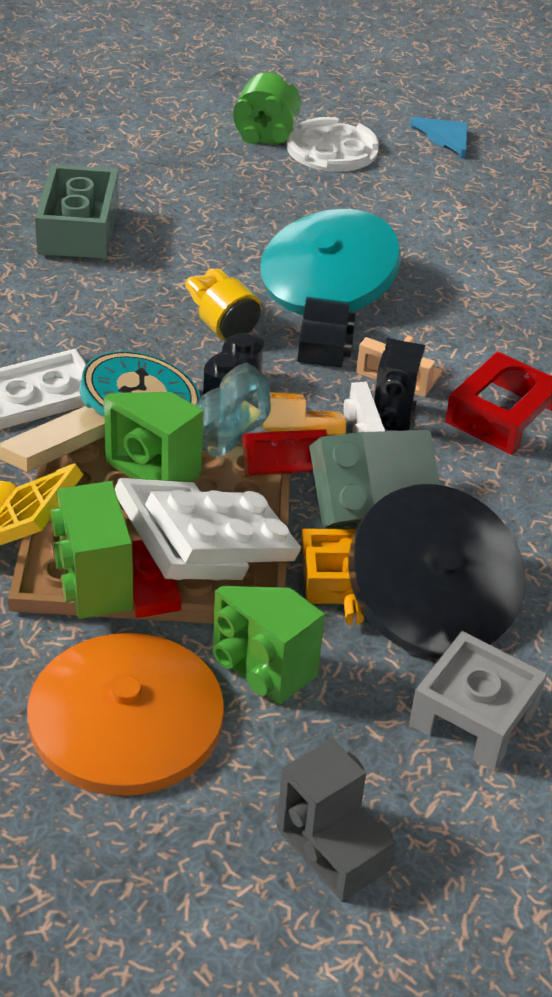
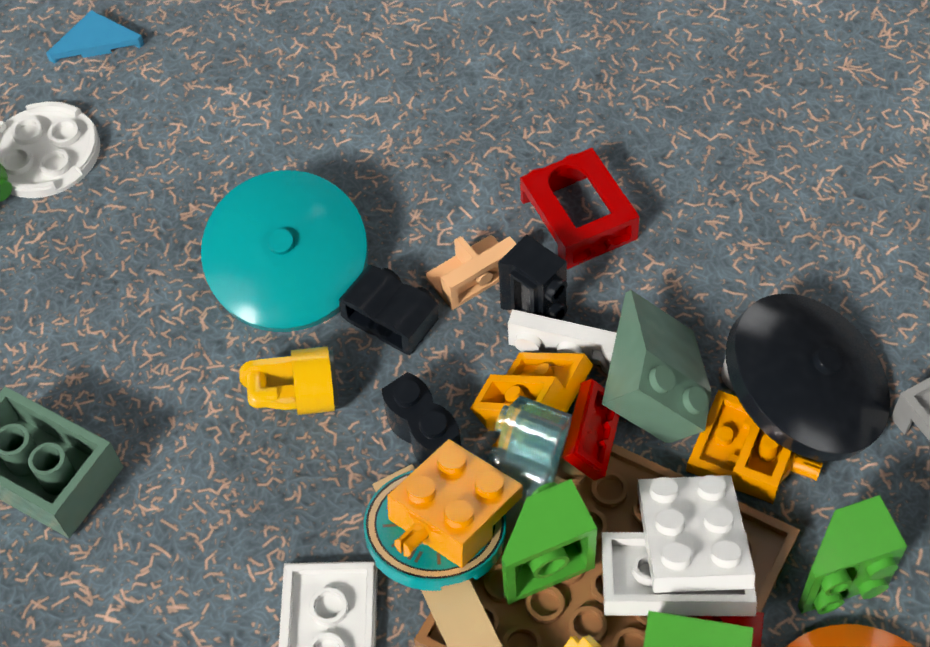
camera: 55 degrees left, 15 degrees up
(155, 369) = (451, 503): none -> light orange plate

